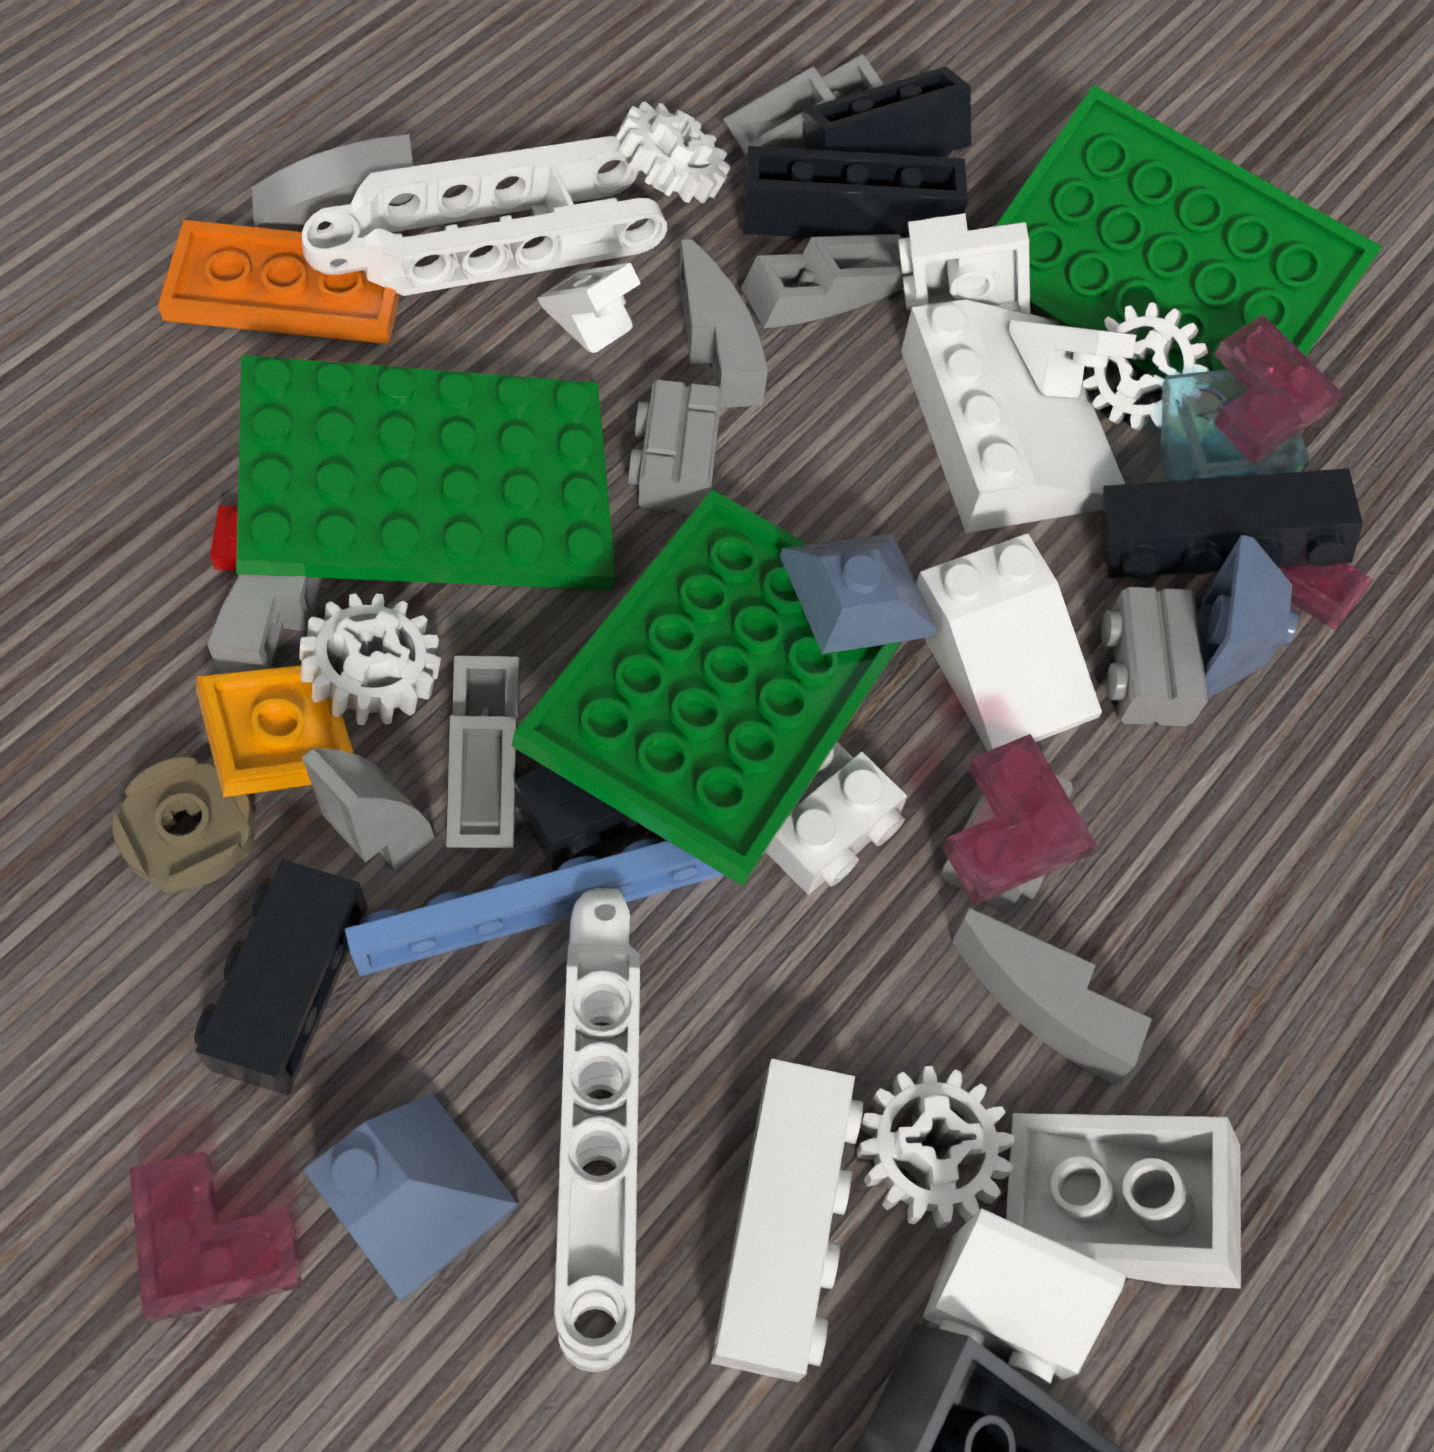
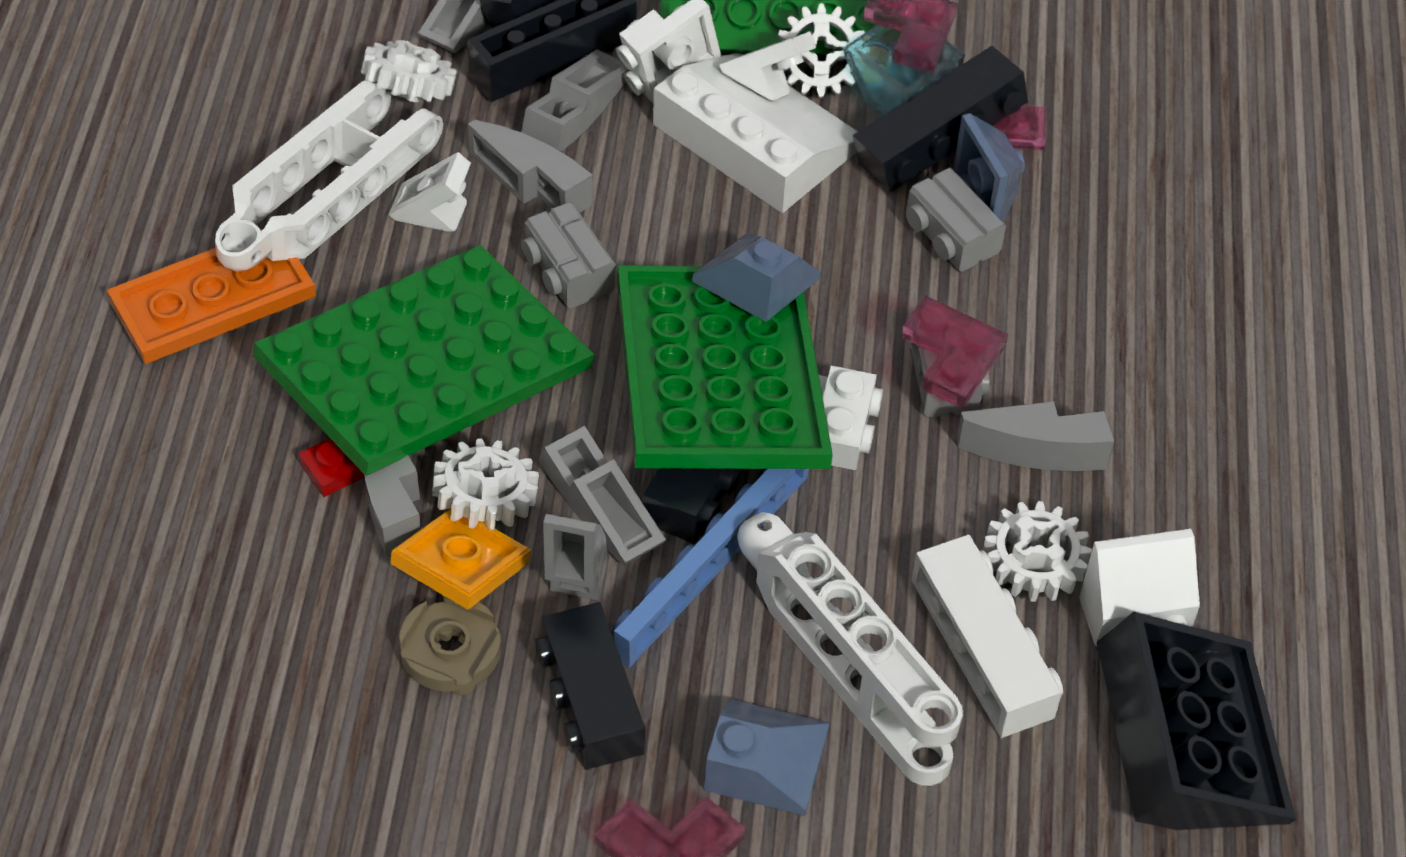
camera: 30 degrees left, 10 degrees down
(326, 181) = (188, 215): light grey slope -> none
(1008, 643) = (864, 260): white slope -> none
(1133, 1192) = (1161, 494): white slope -> none

